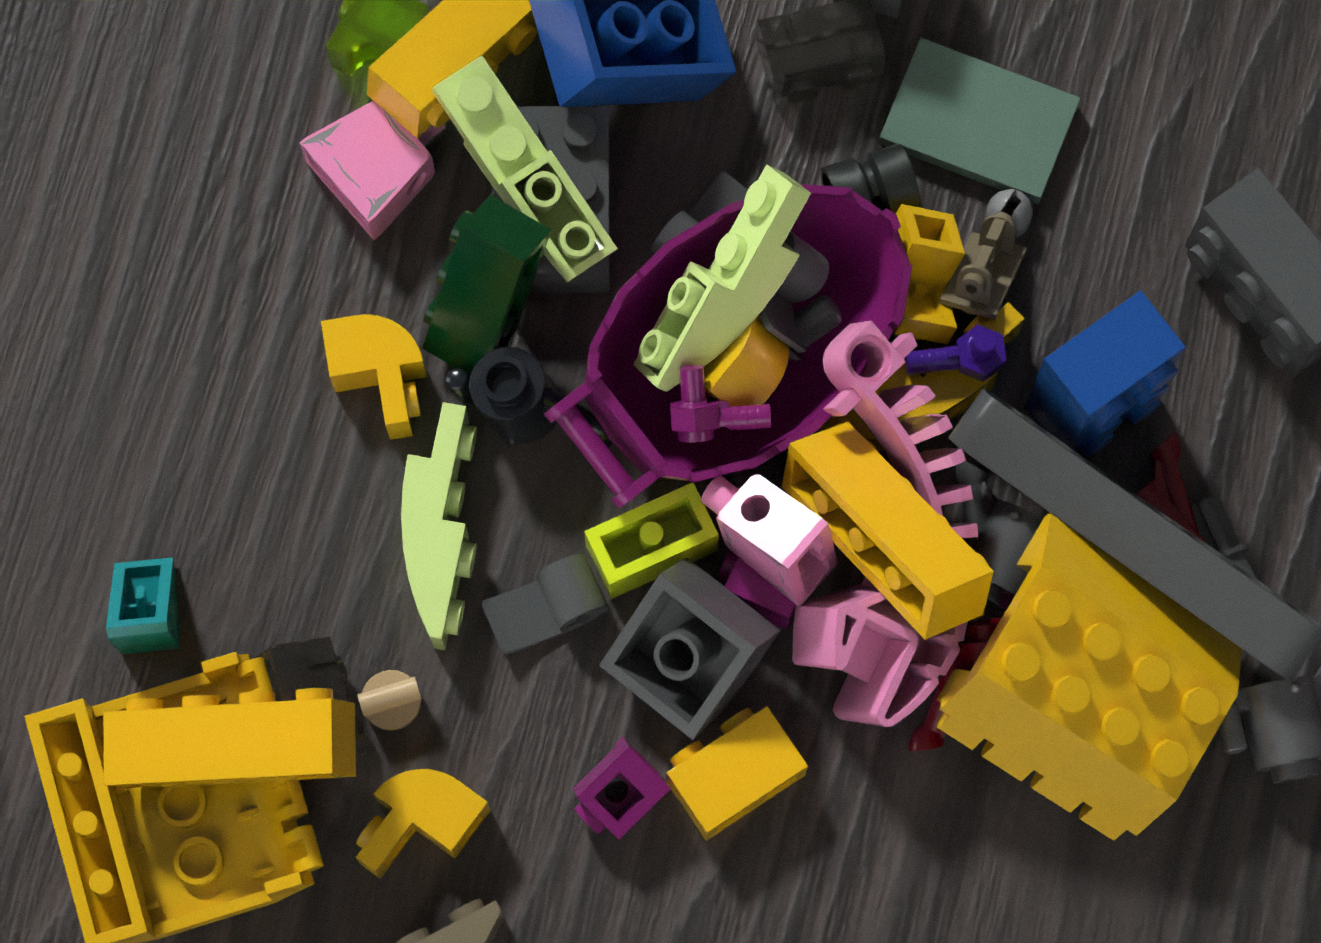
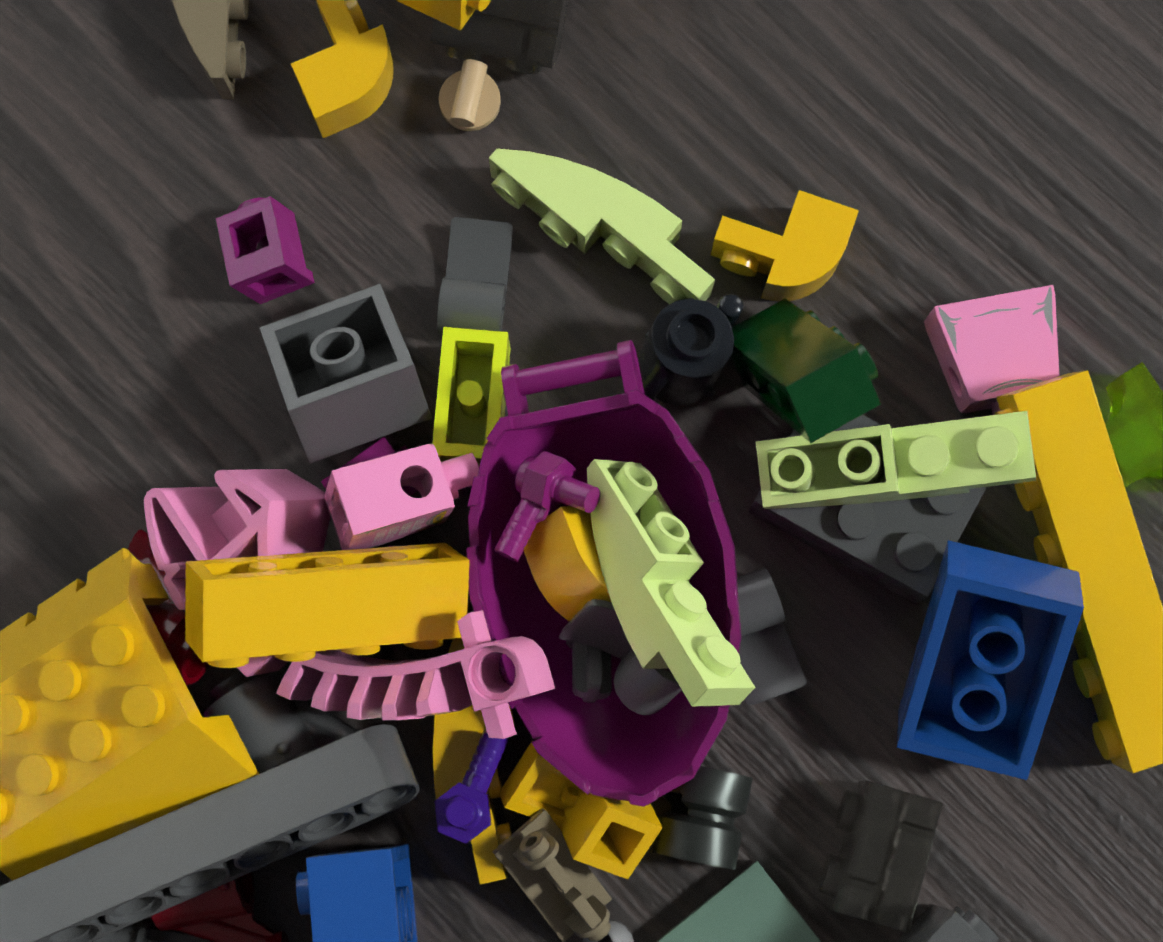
camera: 120 degrees right, 5 degrees up
(735, 771) = (217, 360): yellow brick -> none

